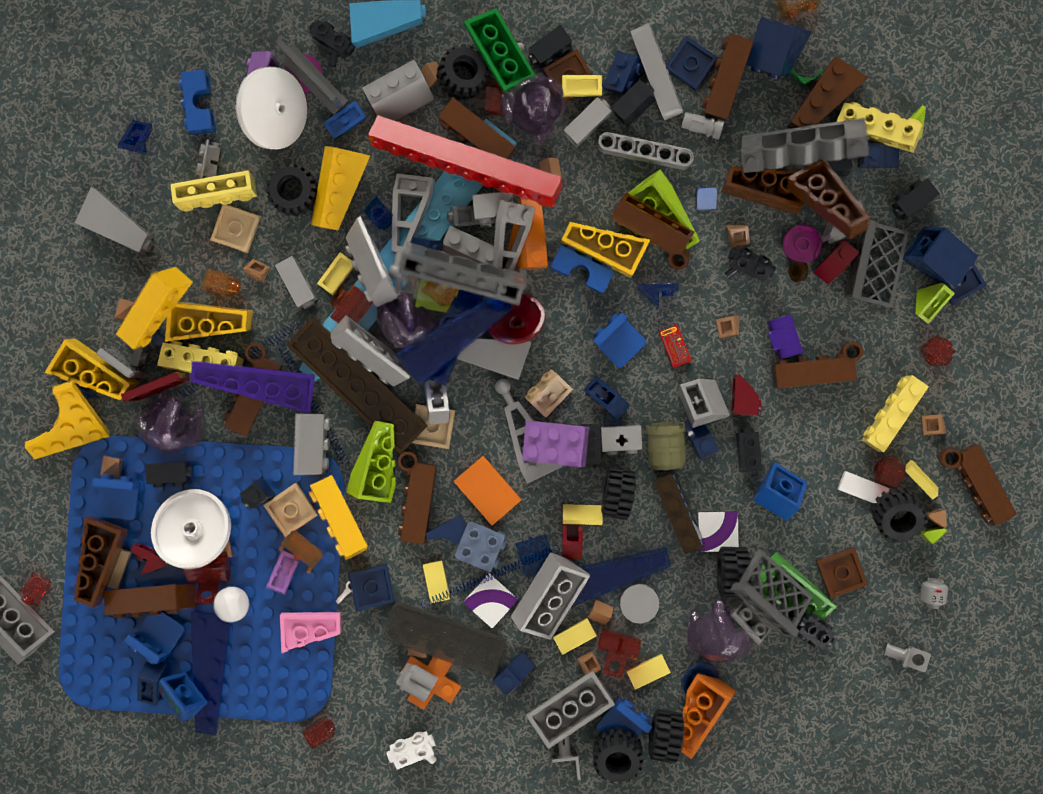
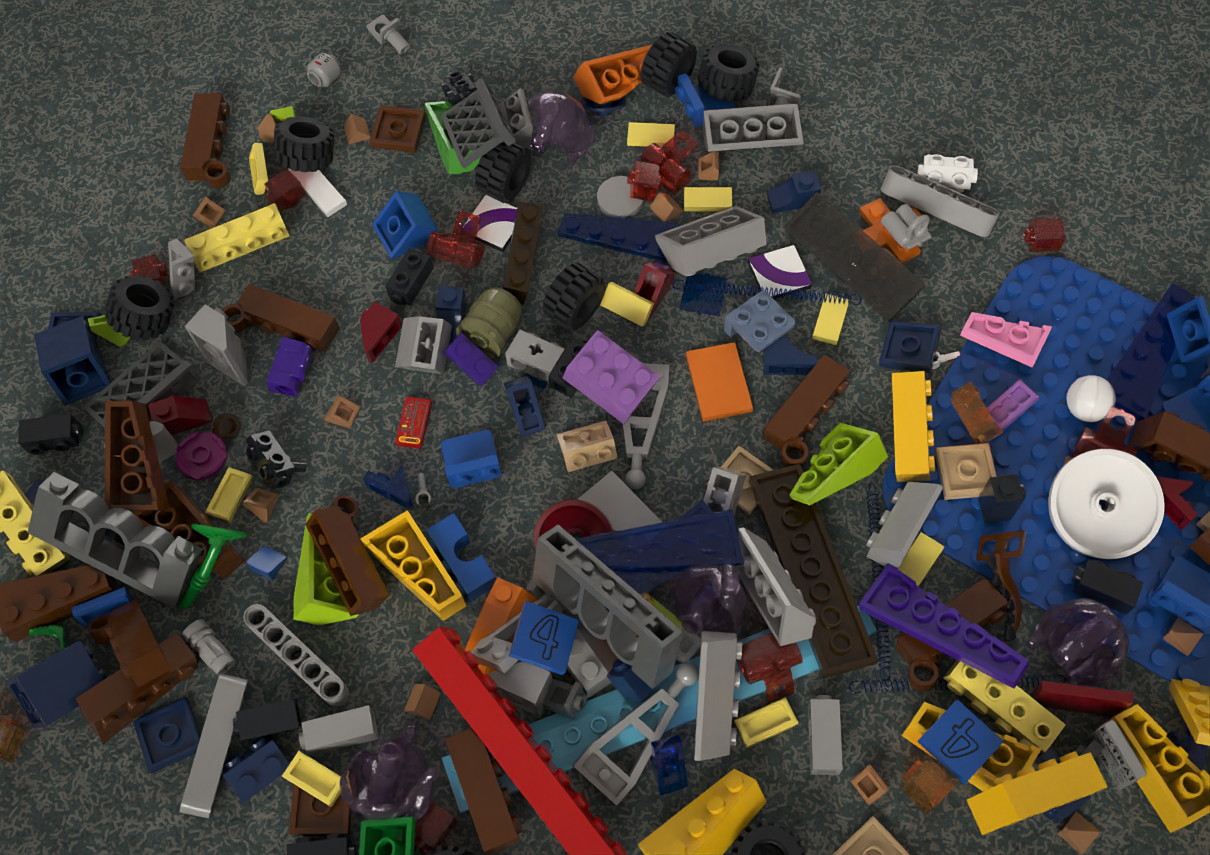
camera: 145 degrees left, 25 degrees down
(212, 316) = (960, 741): none -> blue tile
(235, 443) = (1000, 566): none -> reddish brown piece
(289, 430) = (920, 558): none -> light yellow tile
(406, 721) = (939, 201): none -> light grey beam
(489, 235) = (544, 638): none -> blue tile
(626, 621) = (644, 181): none -> clear red brick
(636, 301) = (422, 490): none -> light grey hand
(663, 410) = (470, 359): none -> dark purple plate
(730, 493) = (460, 246): none -> clear red piece
(737, 182) = (202, 576): none -> green dish
(746, 96) = (133, 642): none -> reddish brown hinge
(763, 228) = (229, 495): none -> light yellow tile
(787, 110) = (105, 604): none -> blue tile
(839, 319) = (219, 343): none -> light grey slope
(873, 555) = (356, 129): none -> medium nougat slope
(916, 367) = (181, 269): none -> light grey bracket
(920, 303) = (139, 307): none -> black tyre

